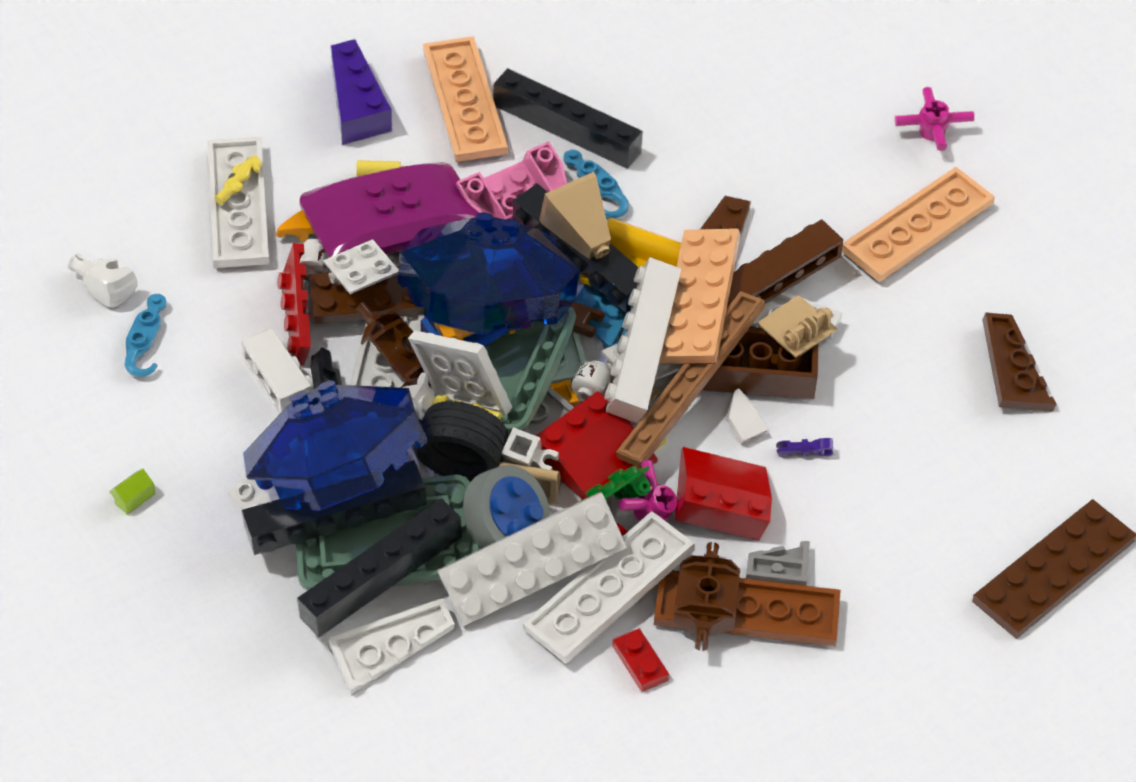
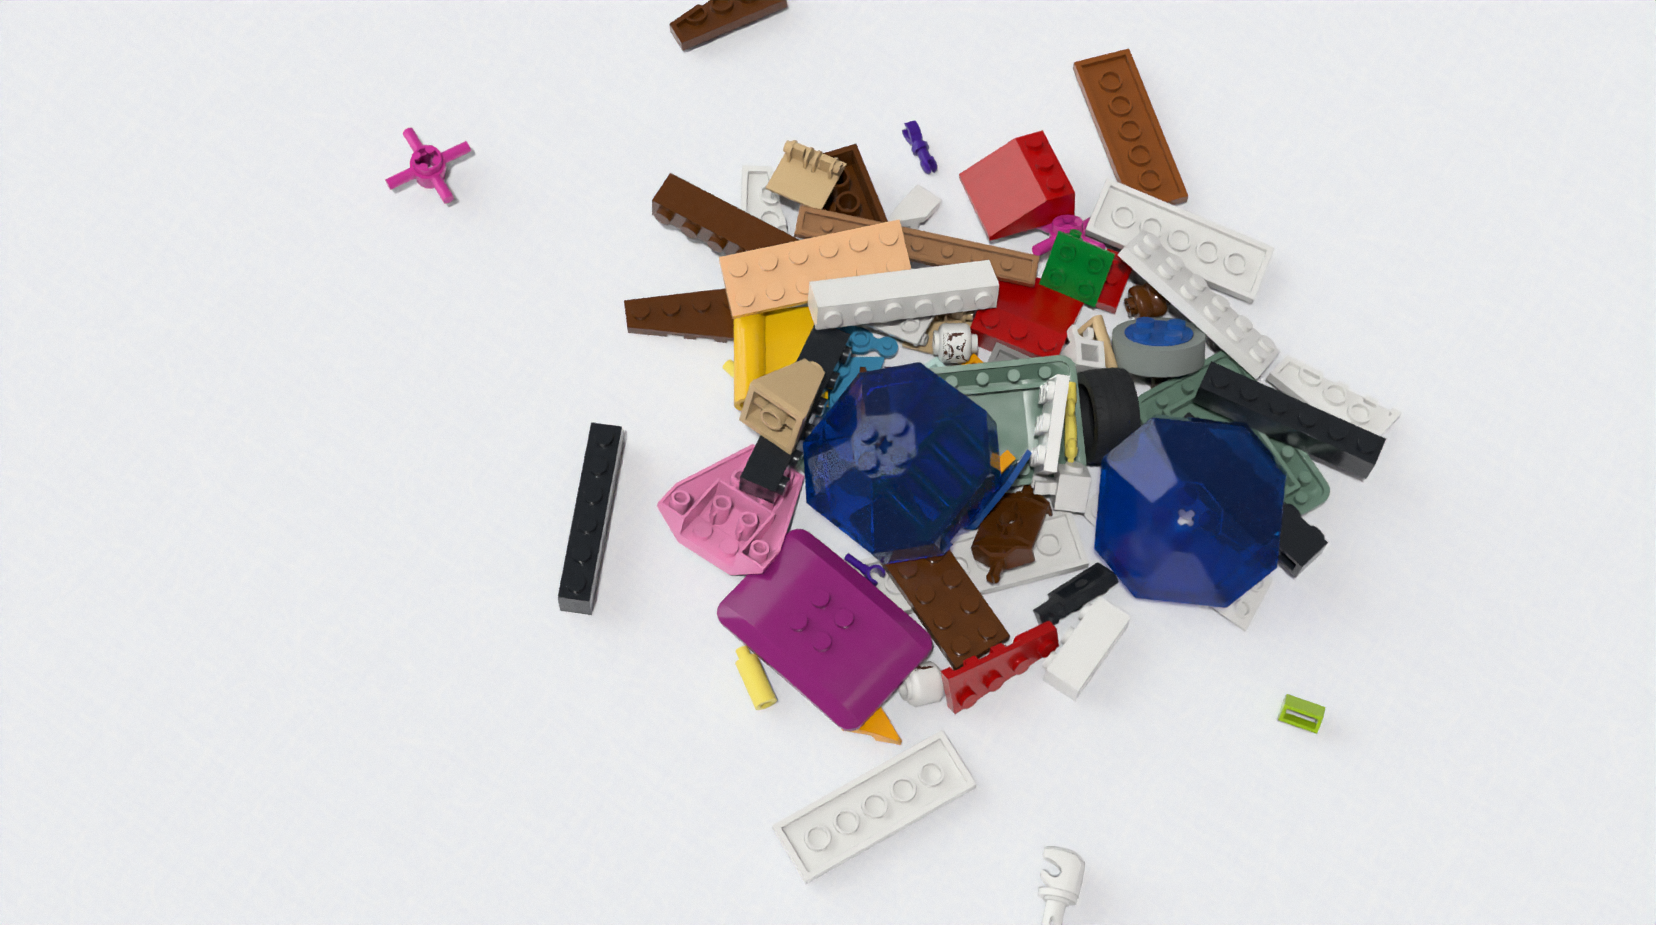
camera: 115 degrees left, 15 degrees up
(143, 334) = (1103, 811): dark azure piece -> none
(241, 174) = (840, 812): light yellow animal -> none
(359, 99) = (661, 749): dark purple wedge -> none
(360, 267) = (945, 596): white hinge -> none
(465, 99) = (603, 641): light nougat plate -> none
(607, 184) = (663, 456): dark azure piece -> none
(640, 660) = (1229, 197): red plate -> none
(705, 611) = (1168, 157): reddish brown plate -> none
(780, 564) = (1069, 120): light grey wing -> none
(917, 224) = (582, 140): light nougat plate -> none

